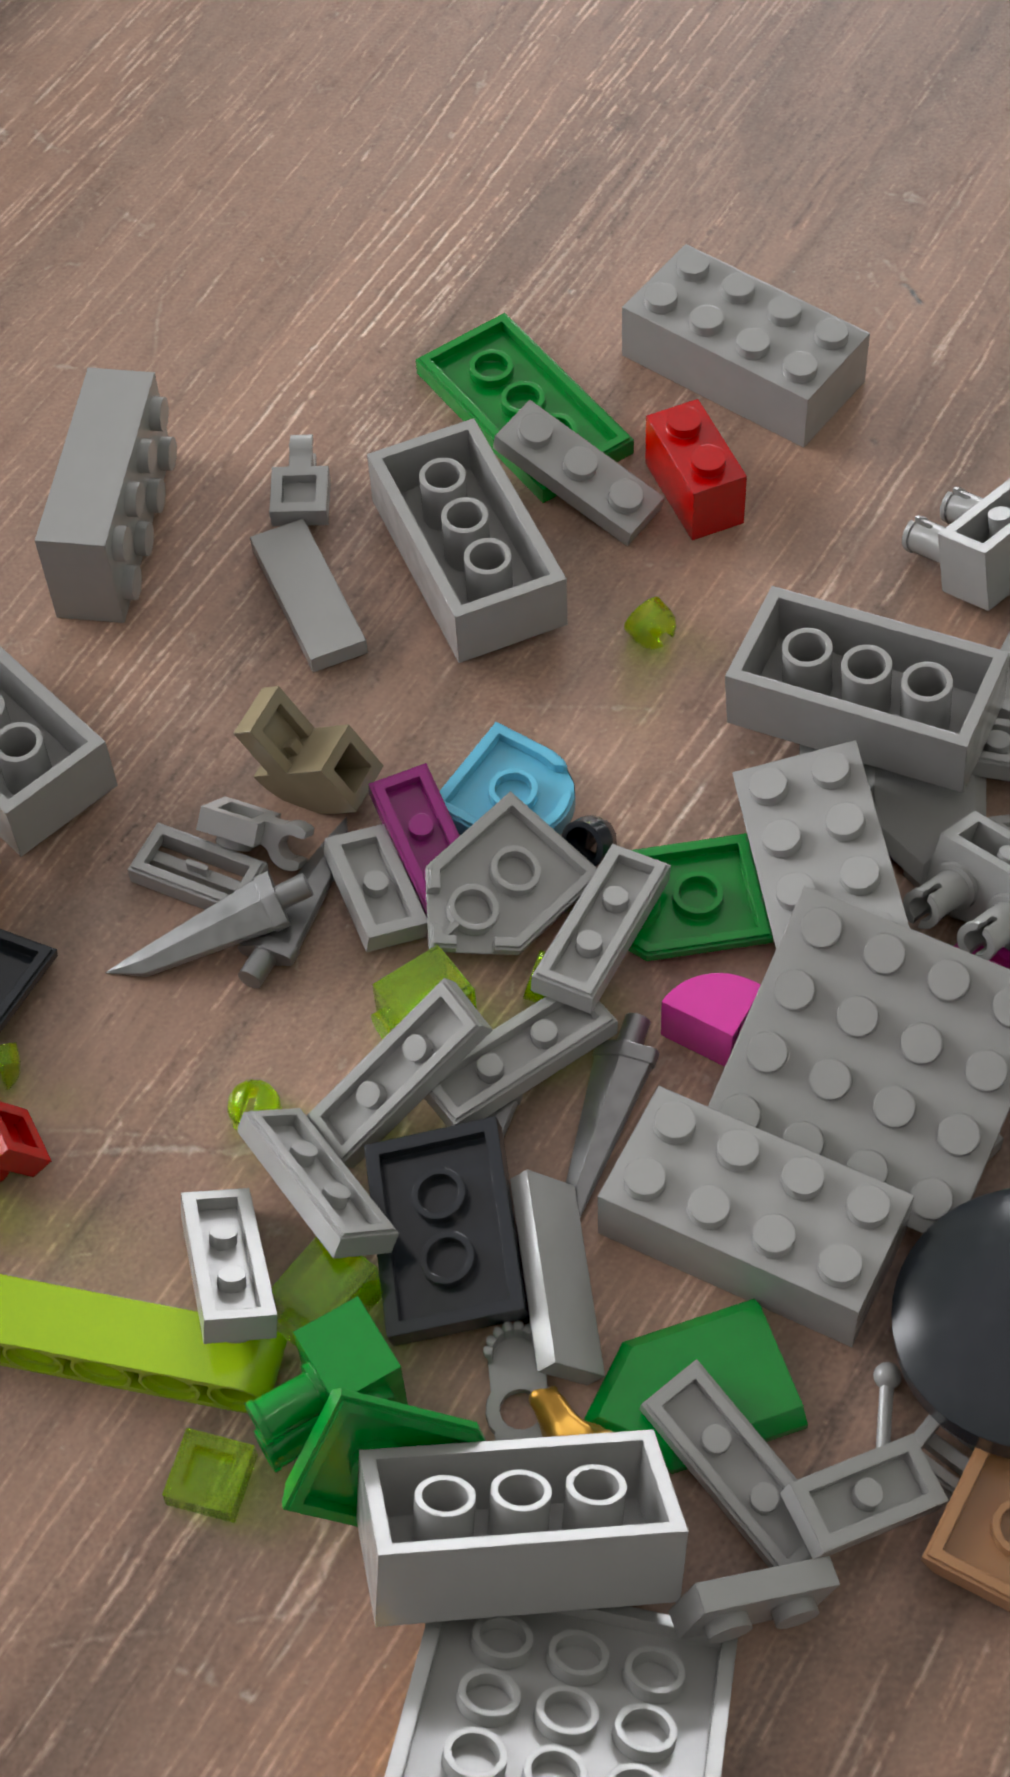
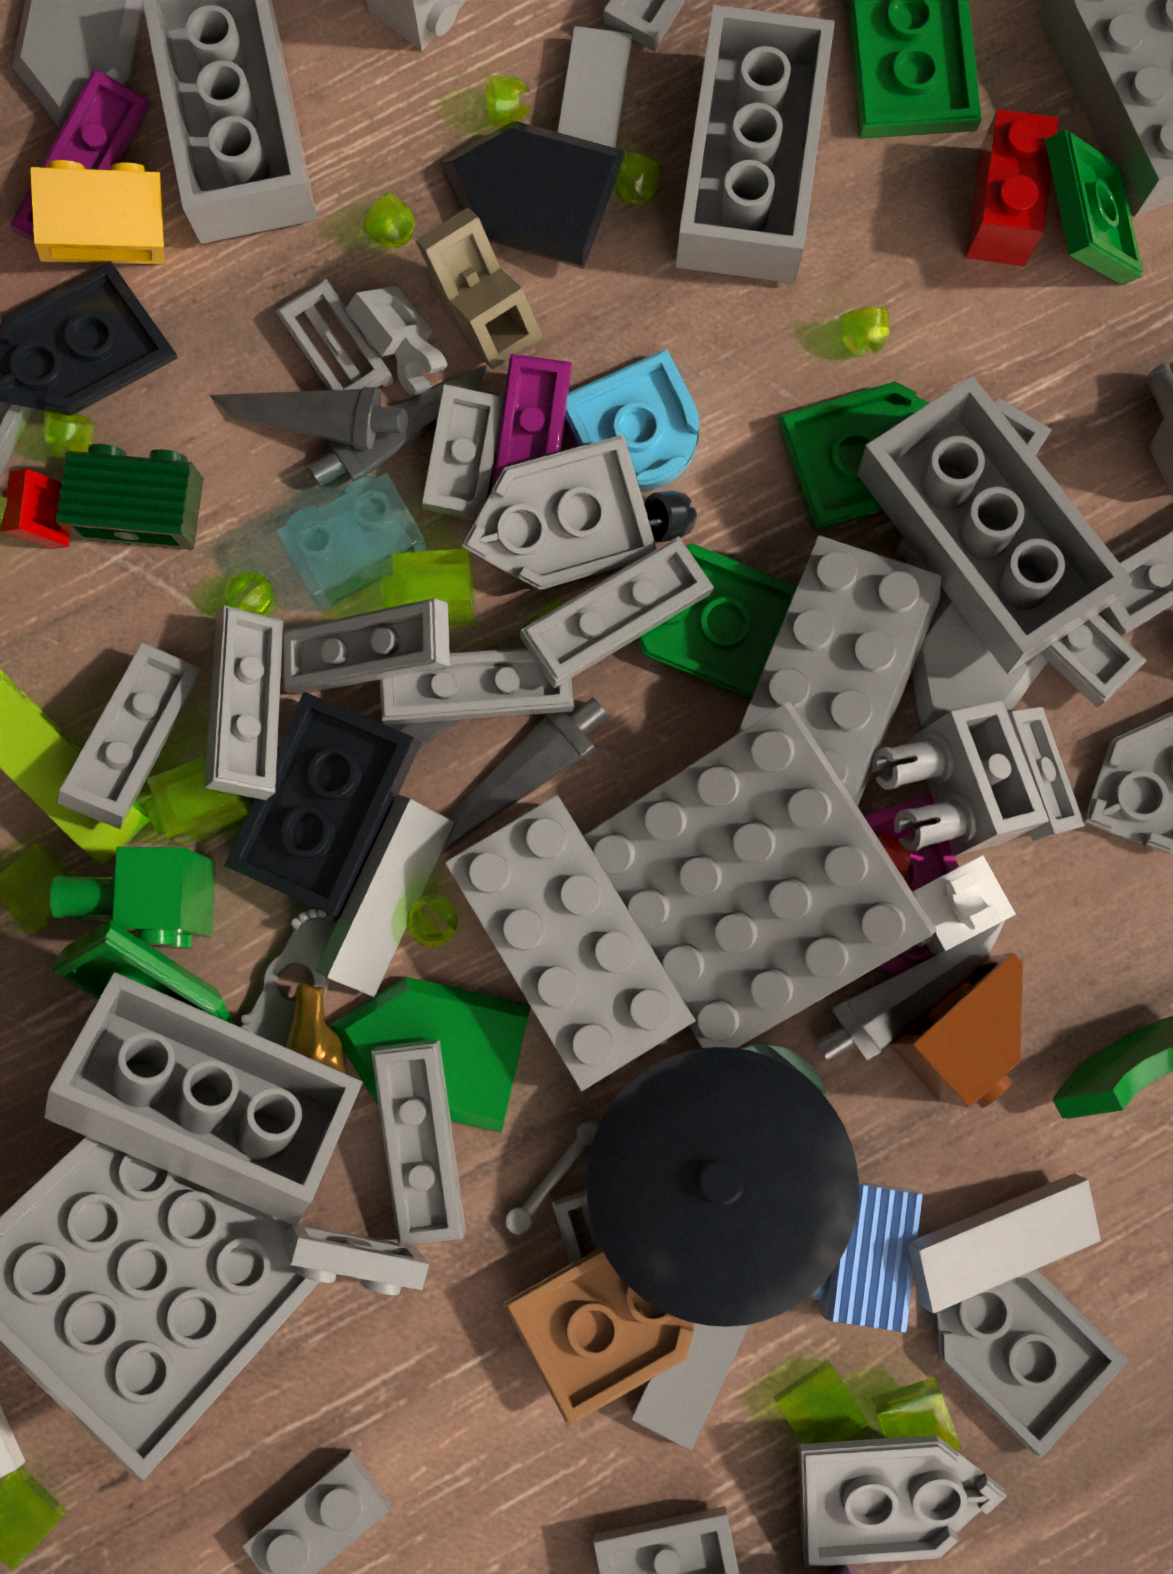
camera: 30 degrees right, 25 degrees up
(93, 1082) = (130, 497): none -> dark green brick
(188, 751) = (390, 222): none -> clear neon green hinge
(226, 617) = (504, 100): none -> clear neon green hinge
(313, 654) = (536, 189): none -> black tile
(321, 1006) = (350, 539): none -> clear light blue brick
(378, 614) = (637, 178): none -> clear neon green hinge
(578, 472) = (904, 127): light grey plate -> none
(619, 1260) = (423, 929): none -> clear neon green hinge
(690, 724) = (828, 446): none -> green tile
(708, 1013) = (658, 744): dark pink brick -> none
(772, 446) = (1094, 208): none -> green tile
(863, 1497) = (490, 1231): light grey plate -> none

